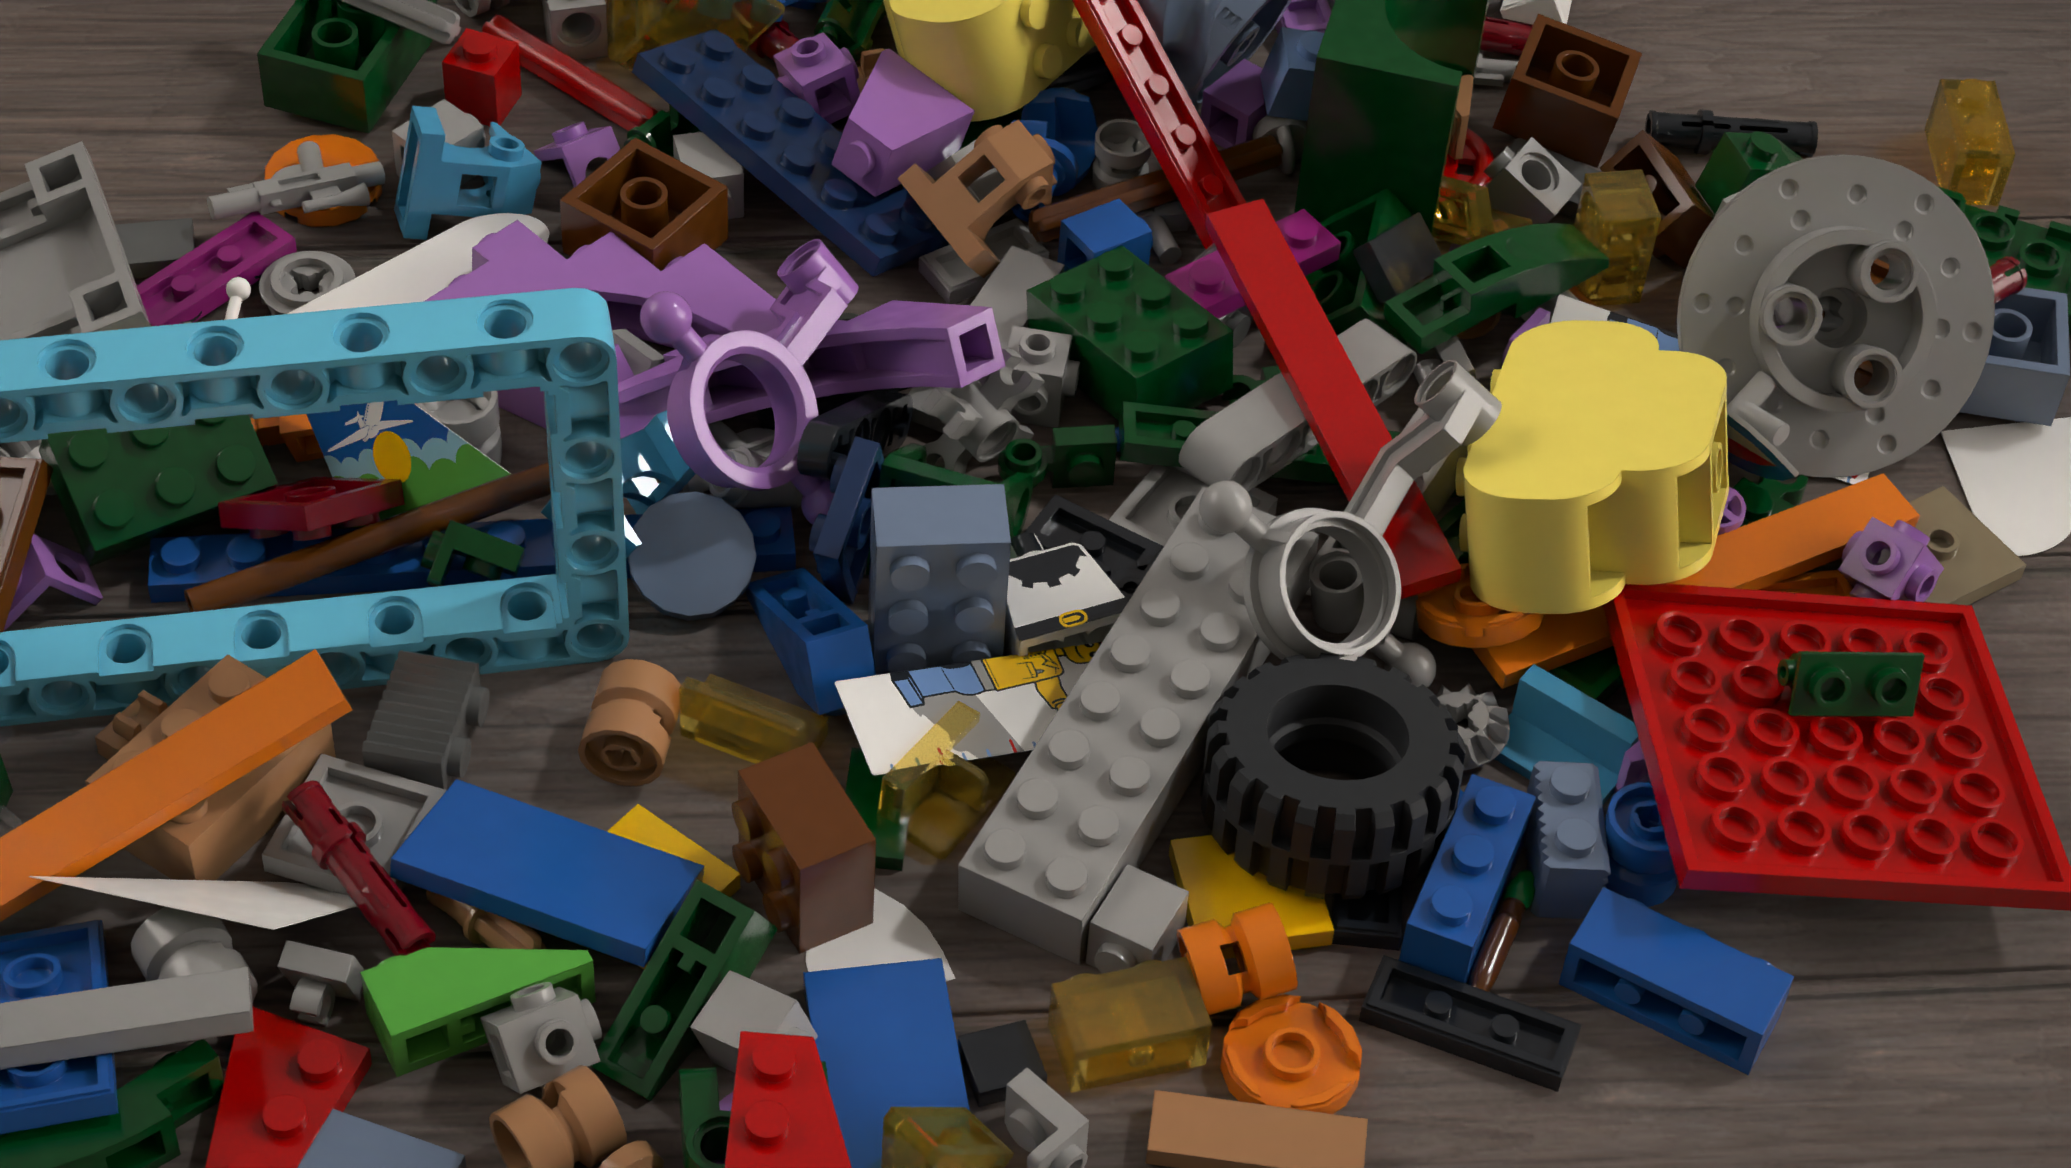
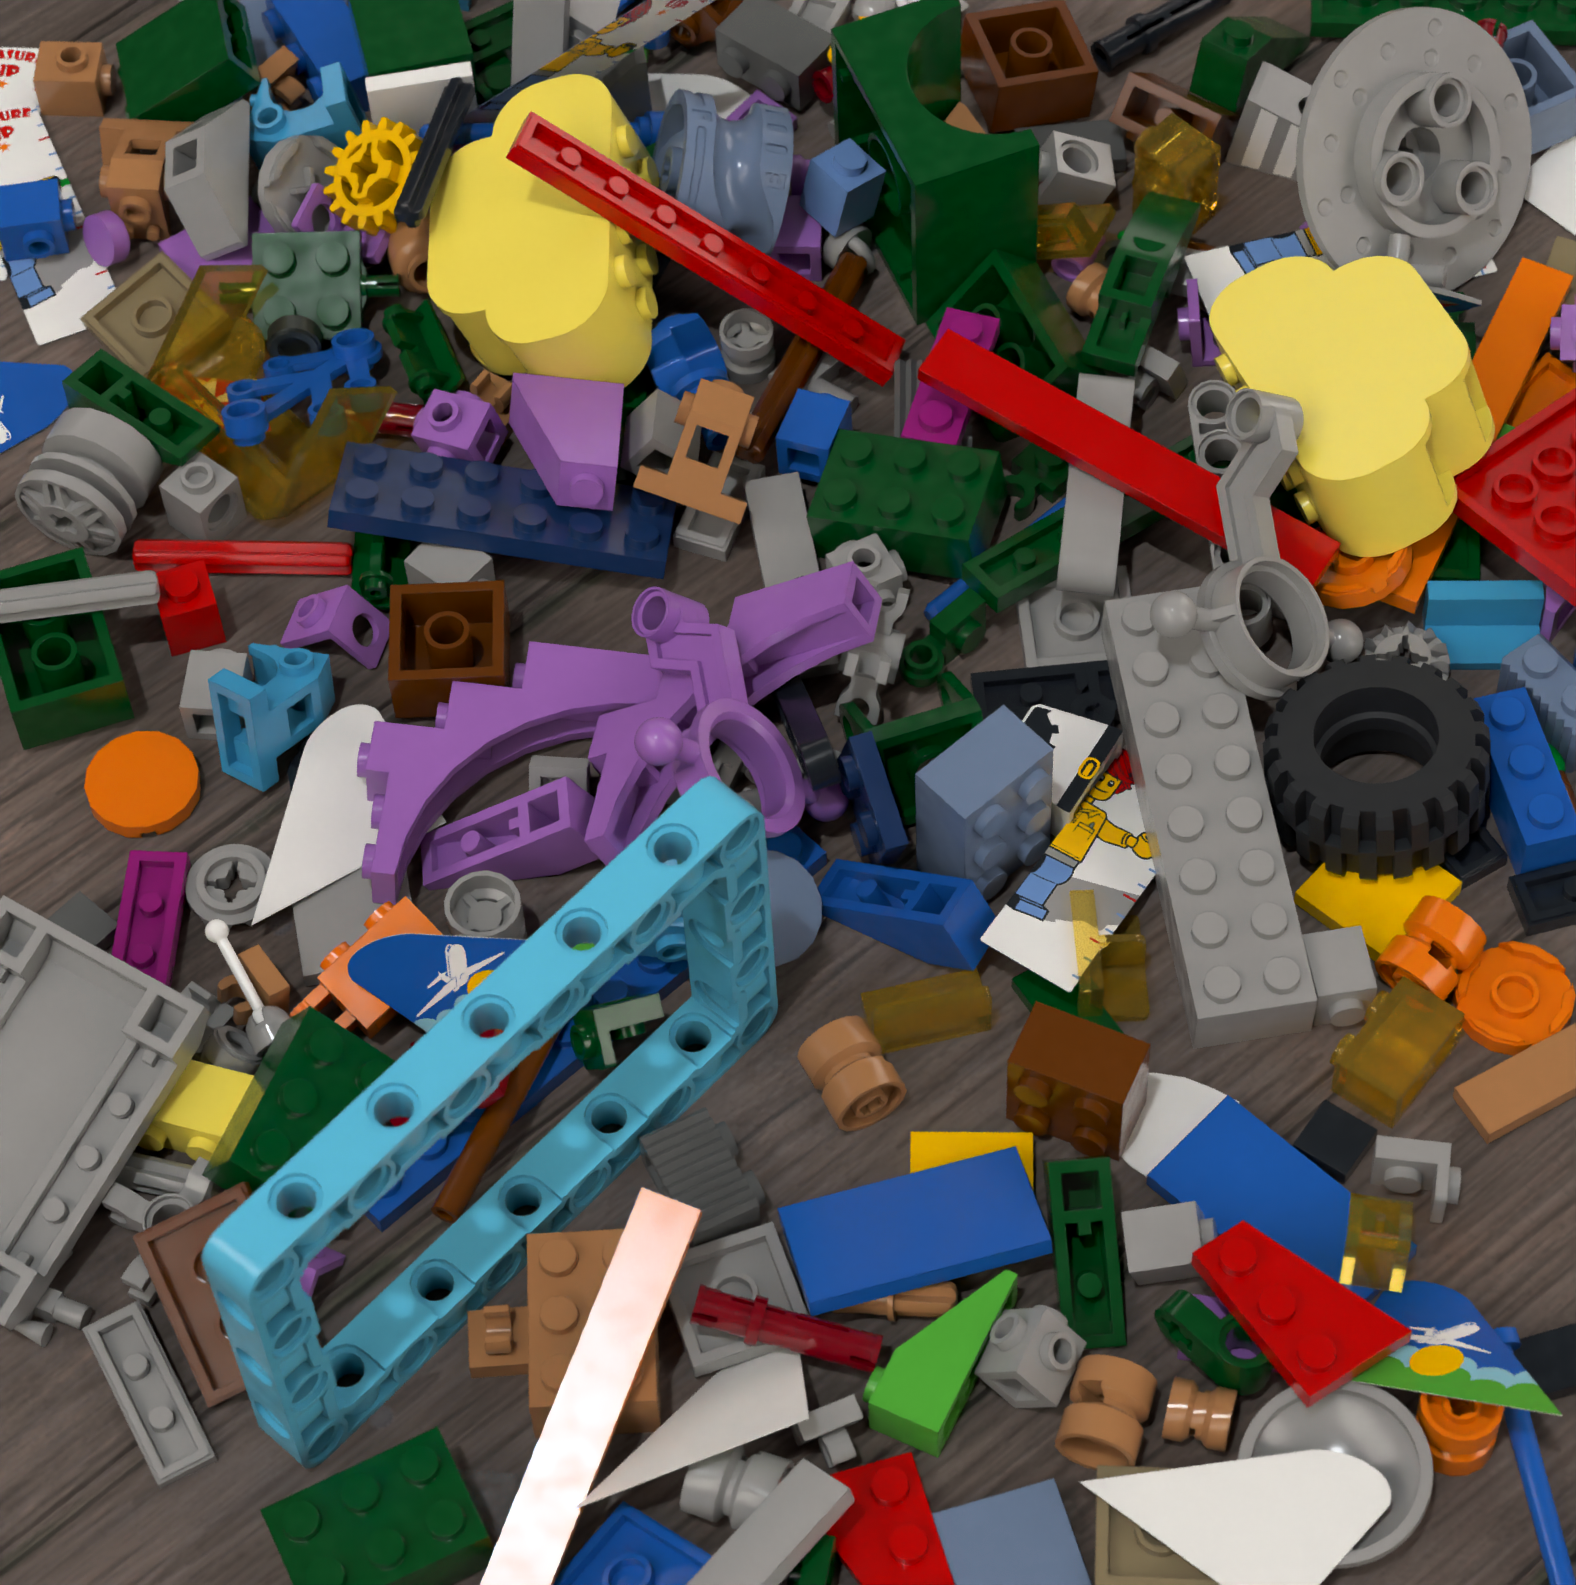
camera: 30 degrees left, 10 degrees up
(302, 185) = (147, 803): light grey piece -> none
(1398, 257) = (1054, 304): black tile -> none

